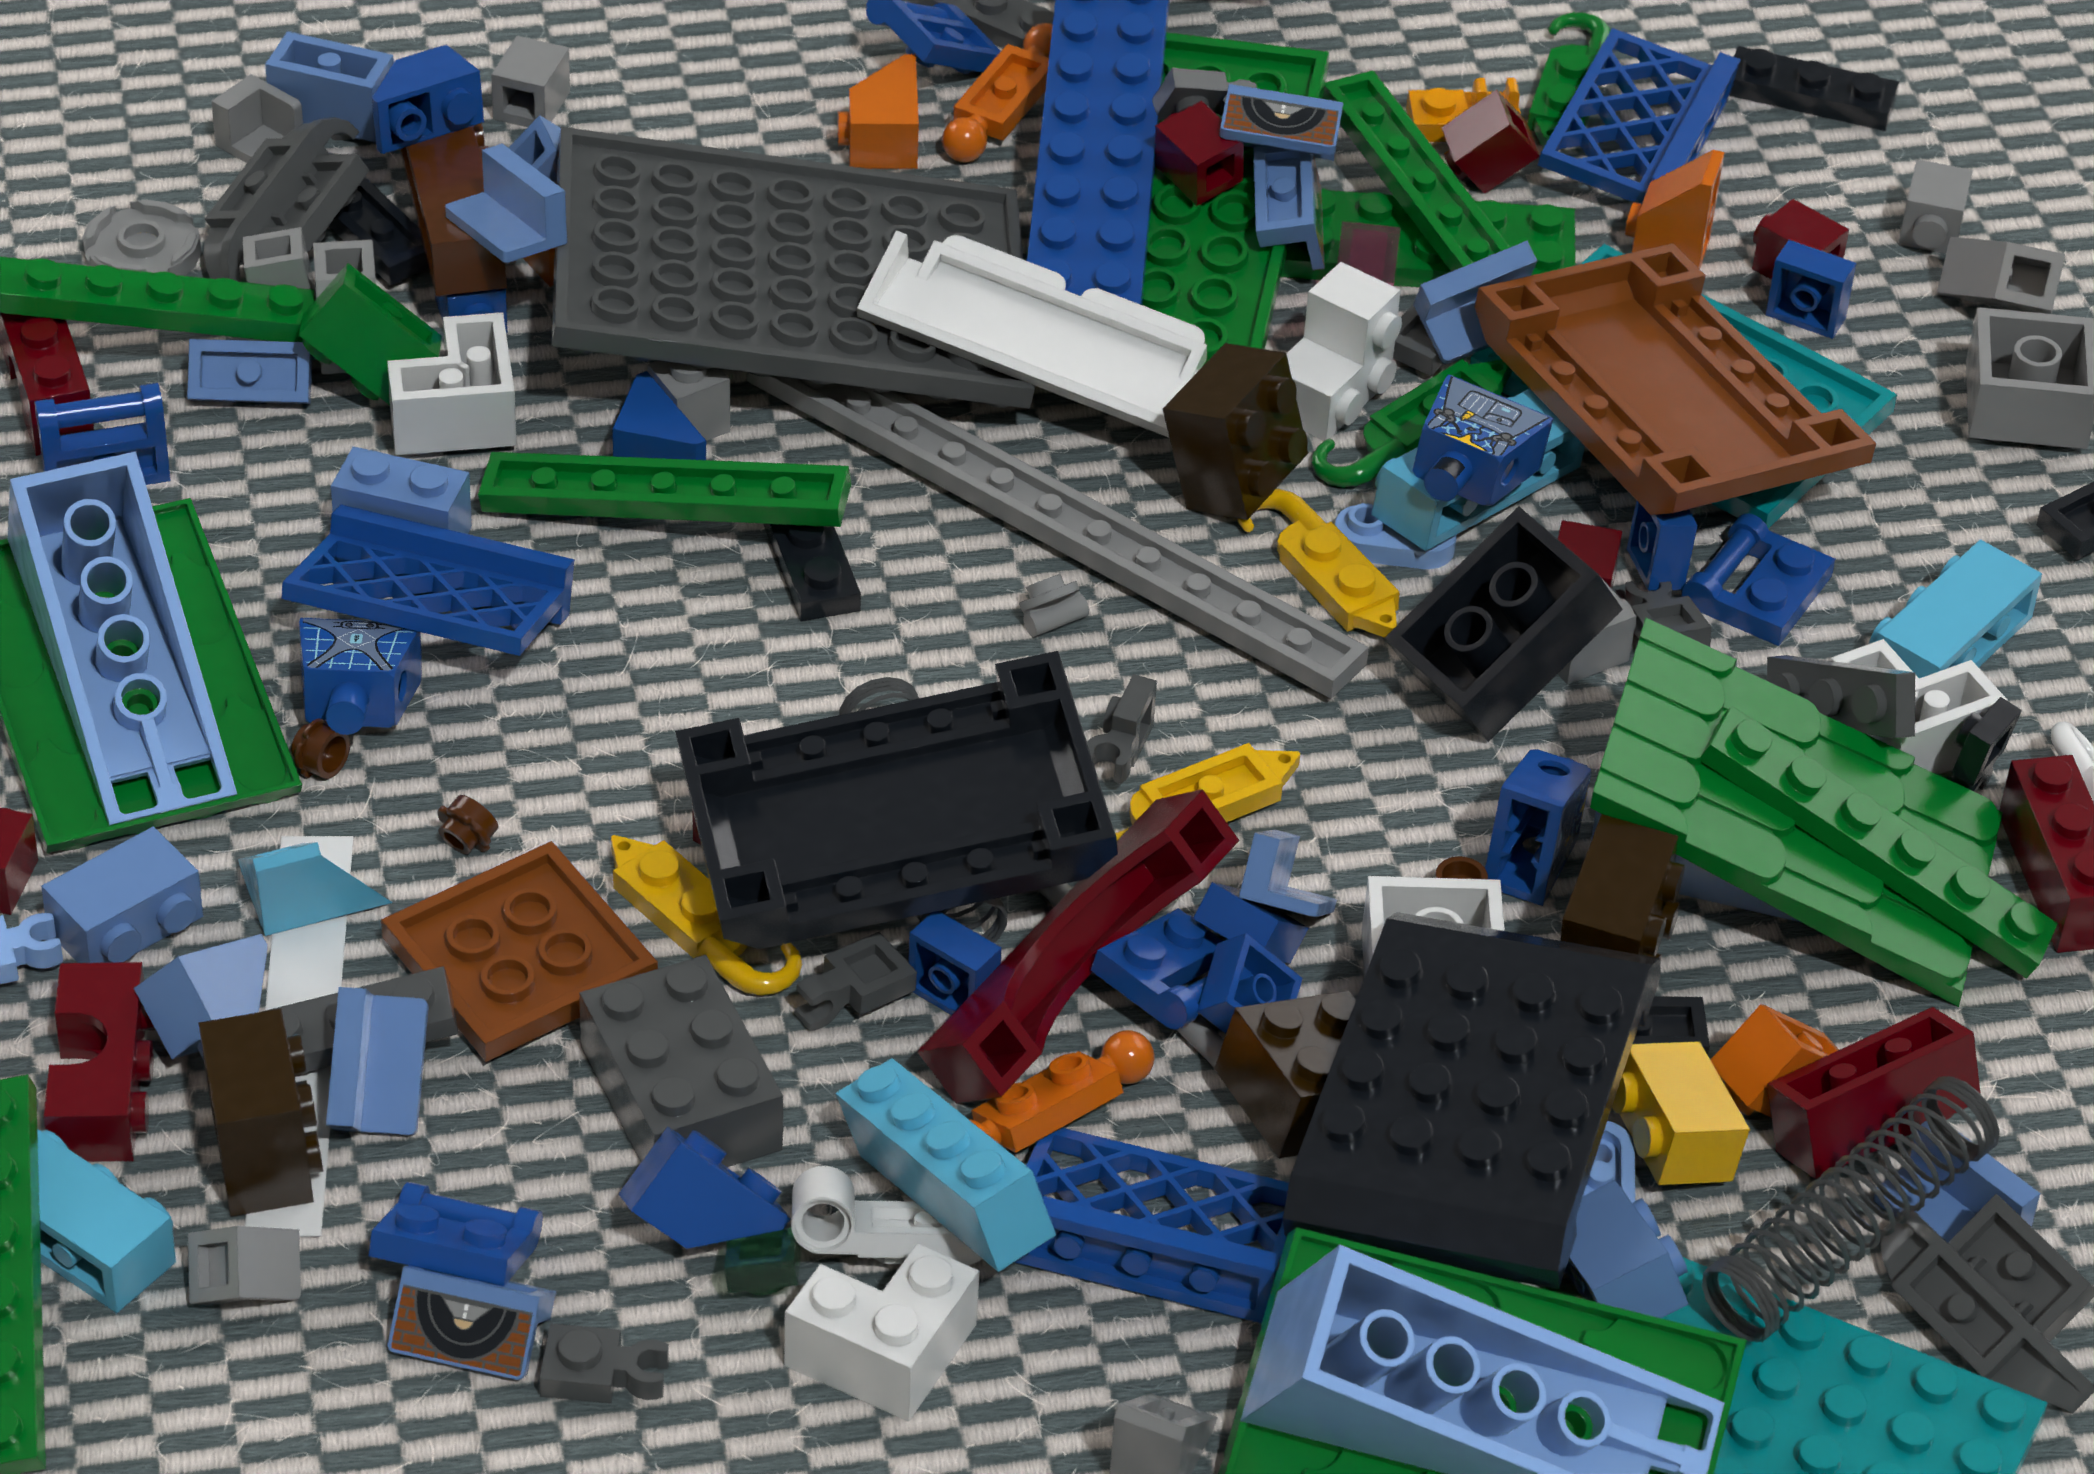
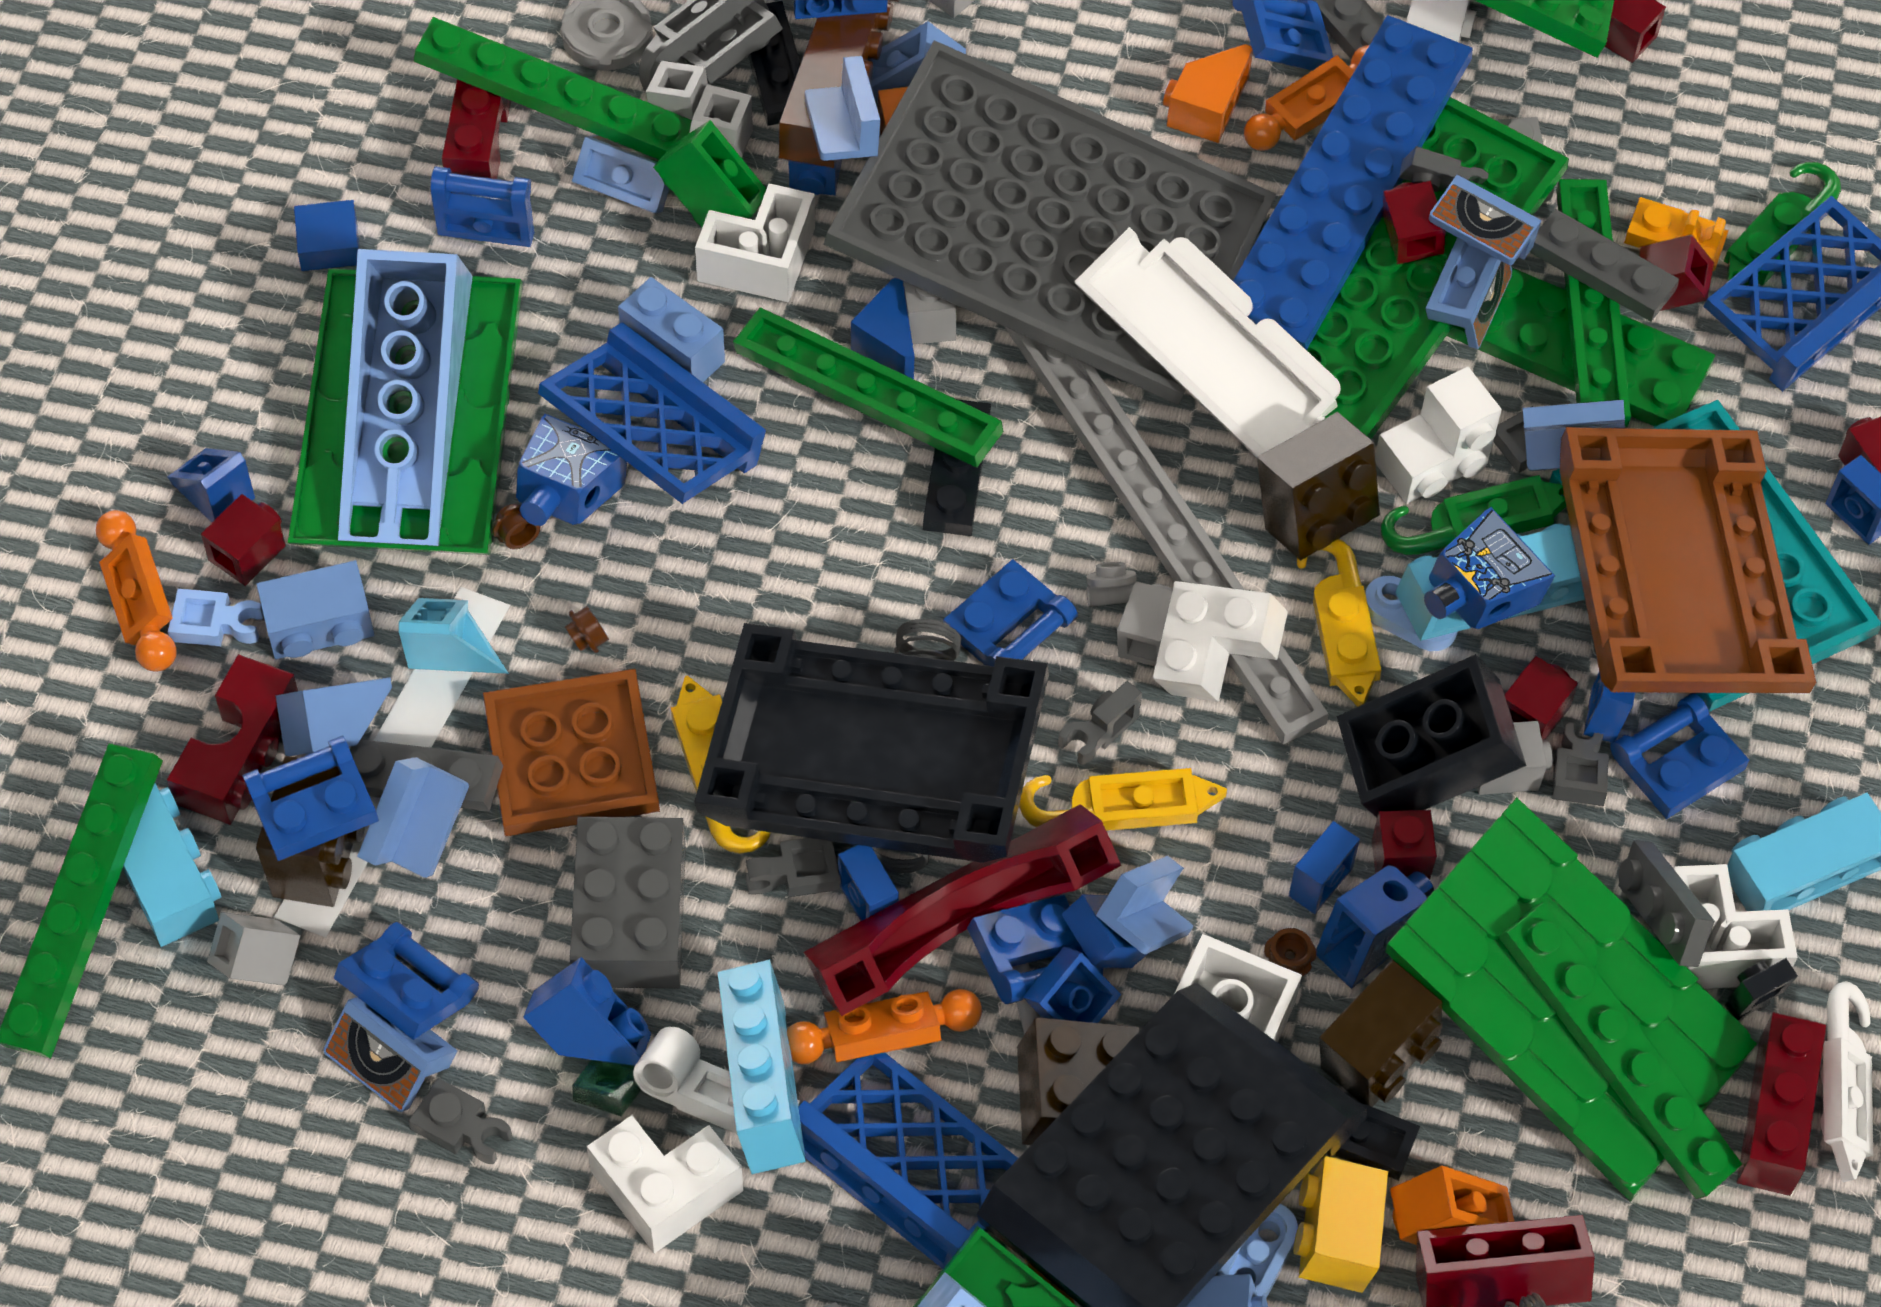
camera: 25 degrees right, 15 degrees up
(272, 1063) = (316, 812): none -> blue plate
(946, 649) = (1001, 607): none -> blue plate
(1121, 624) = (1143, 623): none -> light grey brick
(1202, 587) = (1205, 627): none -> white brick
(1370, 249) = (1511, 359): clear pink brick -> none
(1422, 143) = (1604, 265): none -> dark grey plate
(1451, 789) = (1324, 867): none -> blue piece
(1521, 726) = (1404, 841): none -> dark red brick
(1679, 208) = (1789, 395): orange slope -> none

